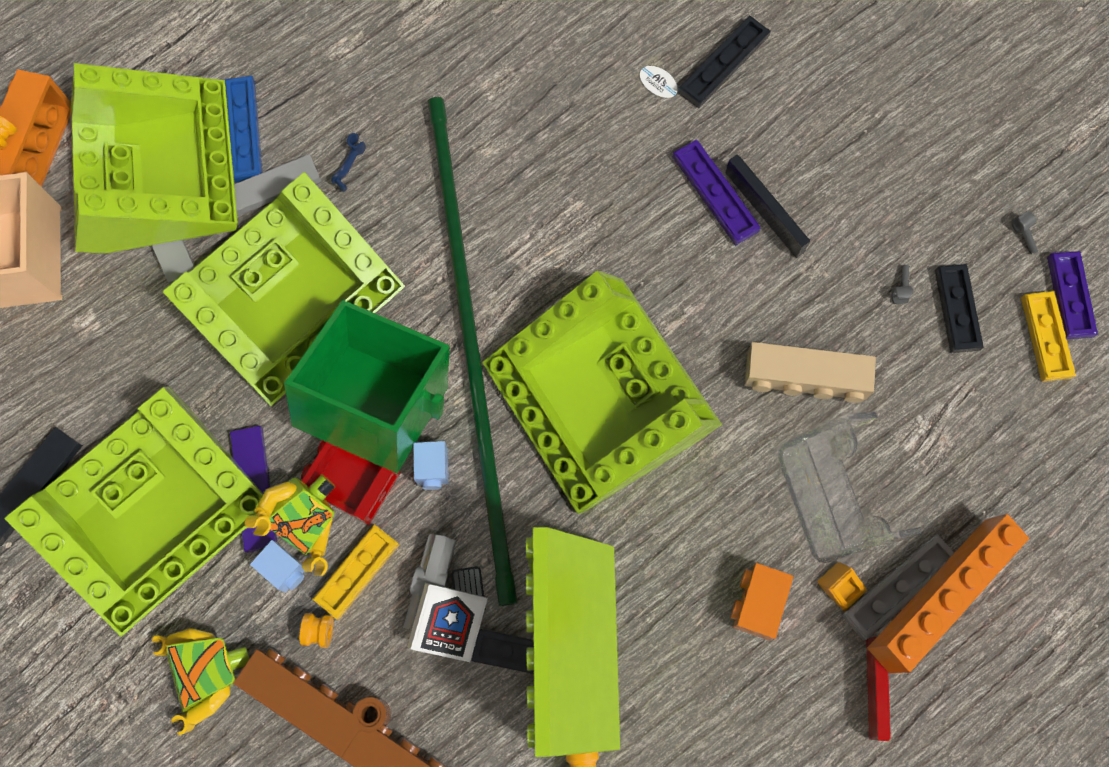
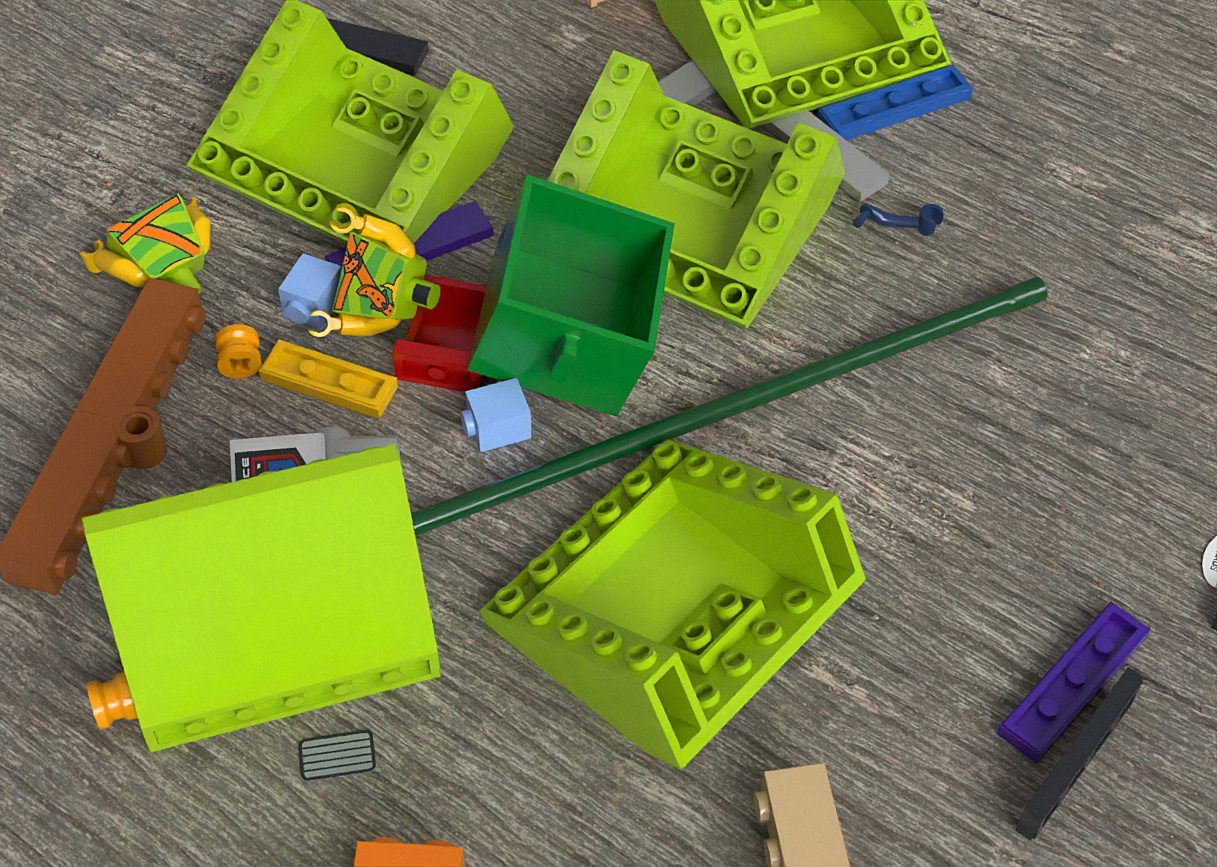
camera: 70 degrees right, 20 degrees down
(652, 628) = (337, 755): none -> sticker

